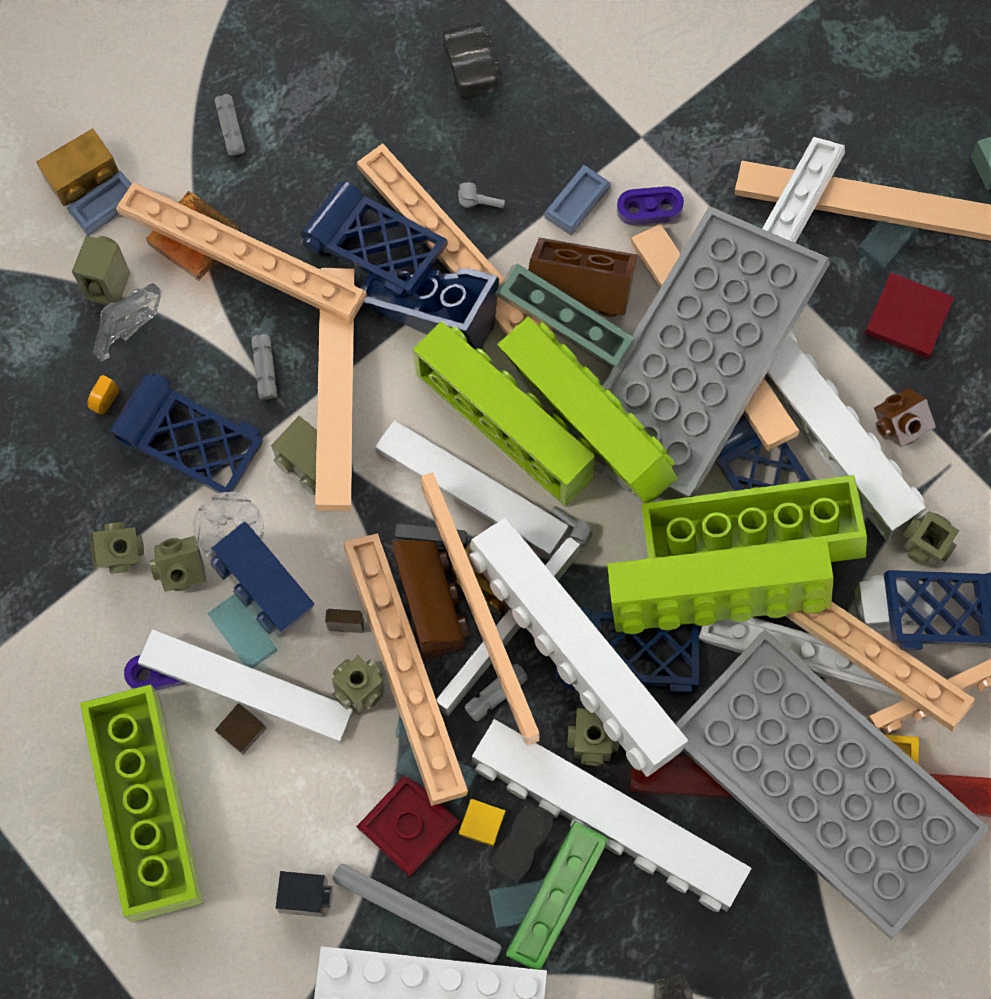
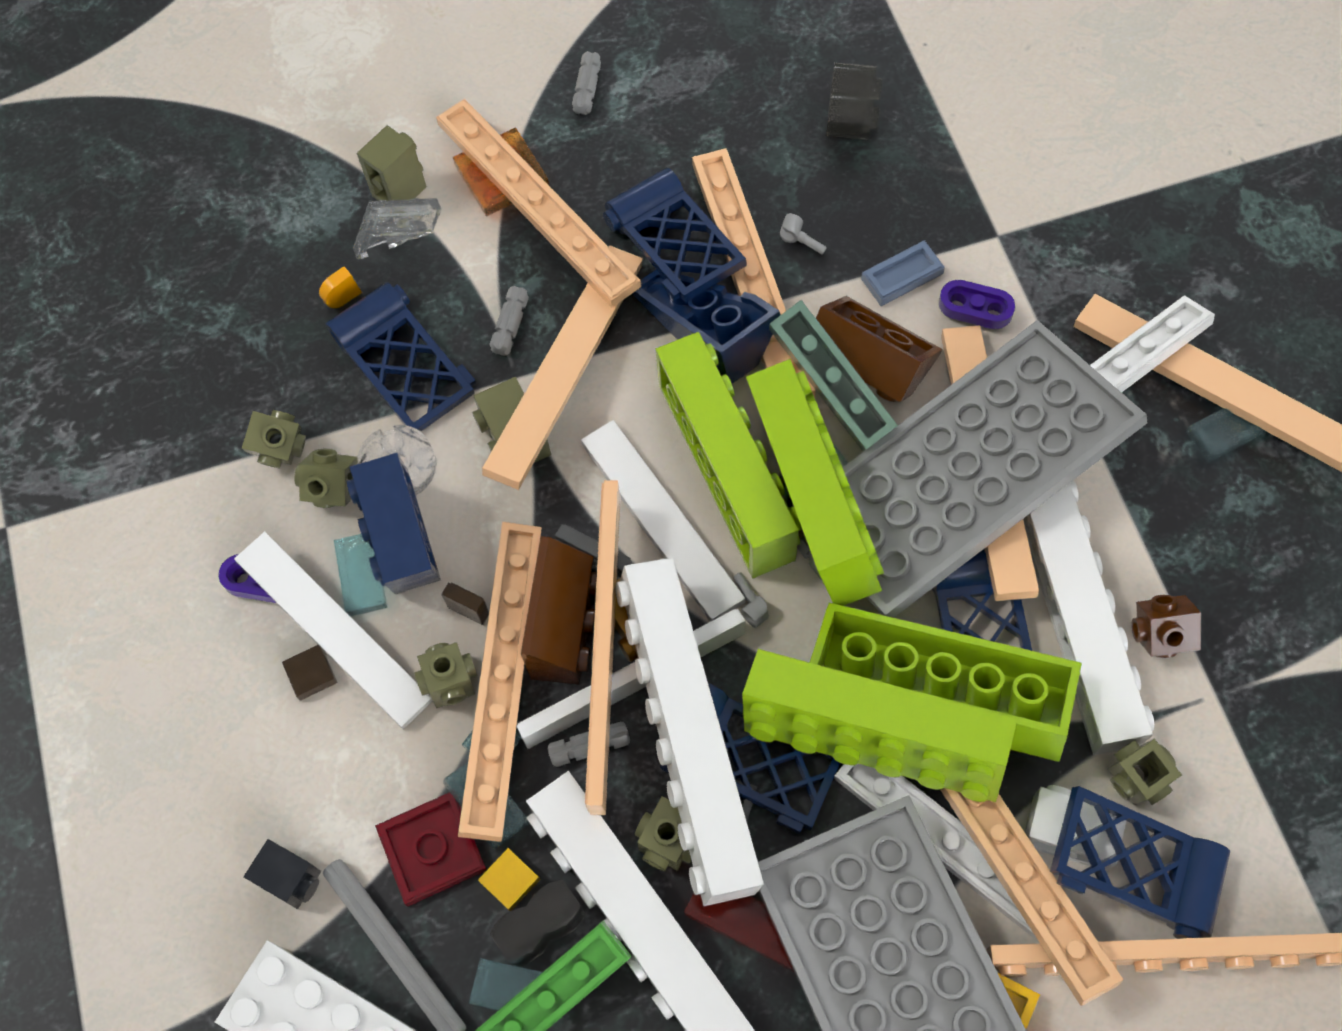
camera: 25 degrees right, 5 degrees down
(78, 167) = (422, 70): pearl gold brick -> none
(99, 204) = (420, 115): sand blue tile -> none
(141, 804) = (166, 708): lime brick -> none
(909, 315) = (1218, 520): dark red tile -> none

